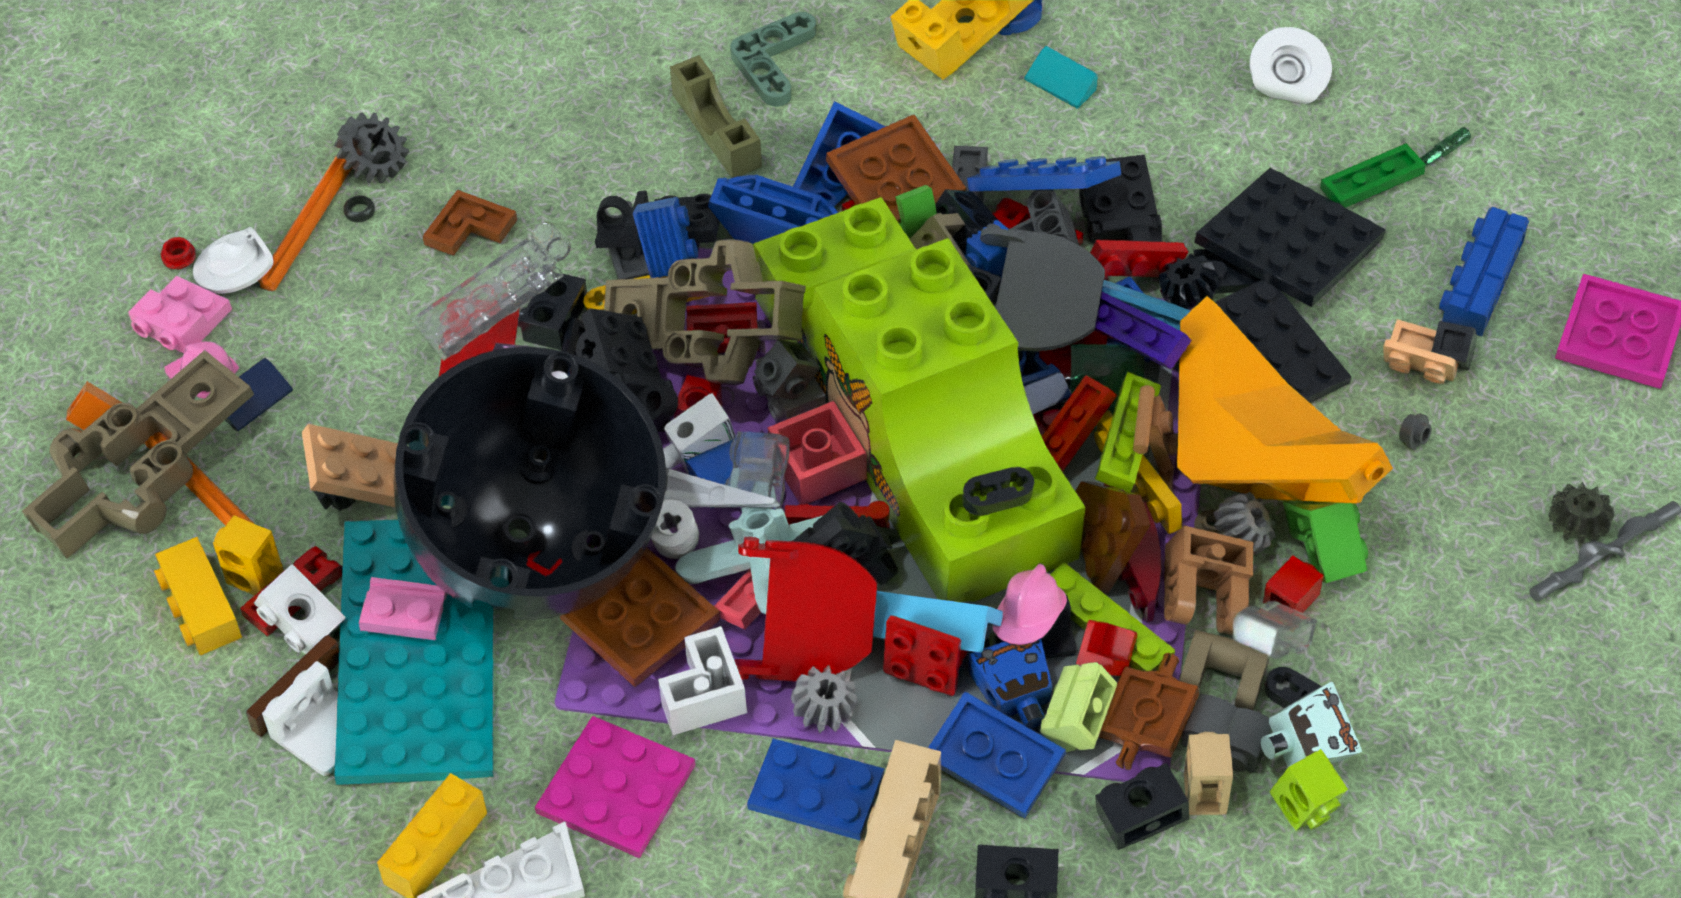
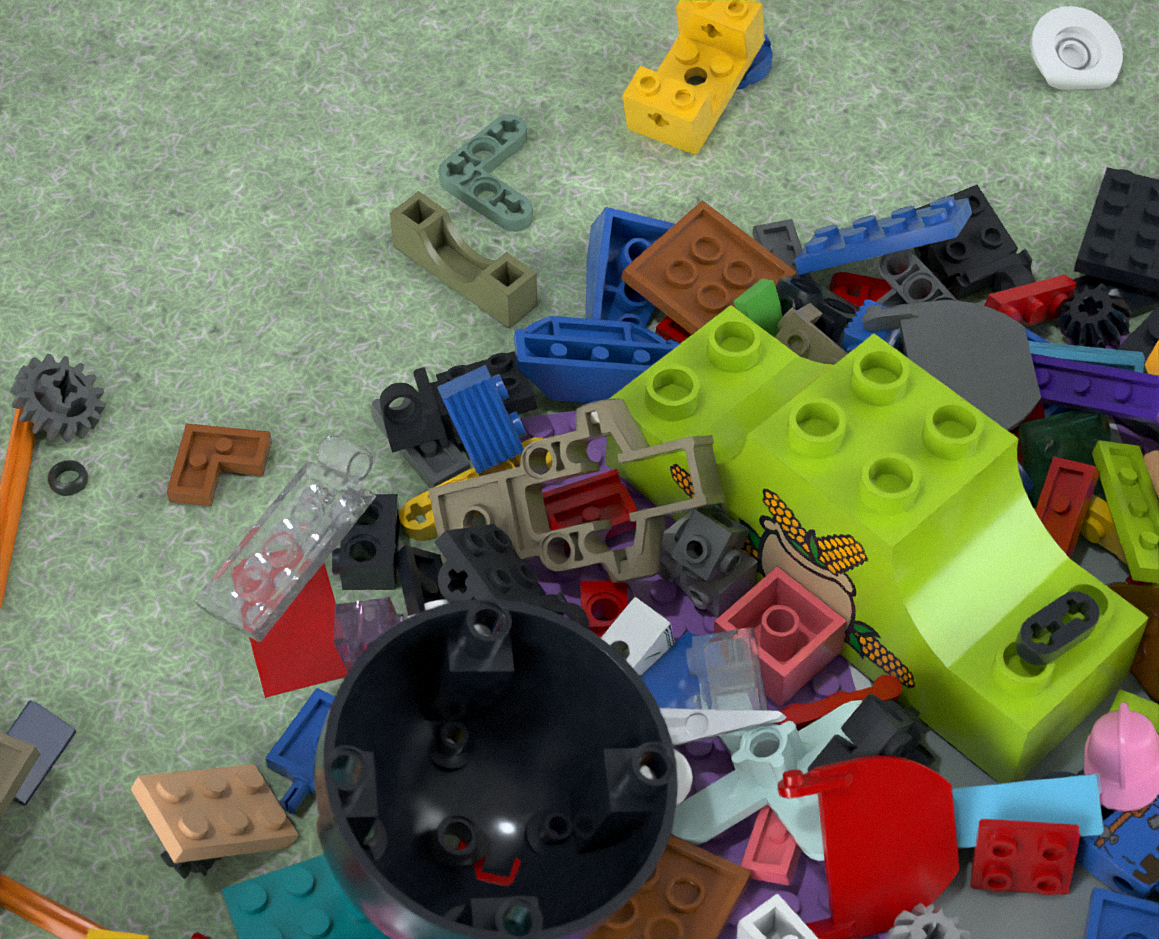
camera: 20 degrees left, 0 degrees up
(1062, 77) = (831, 120): teal slope -> none

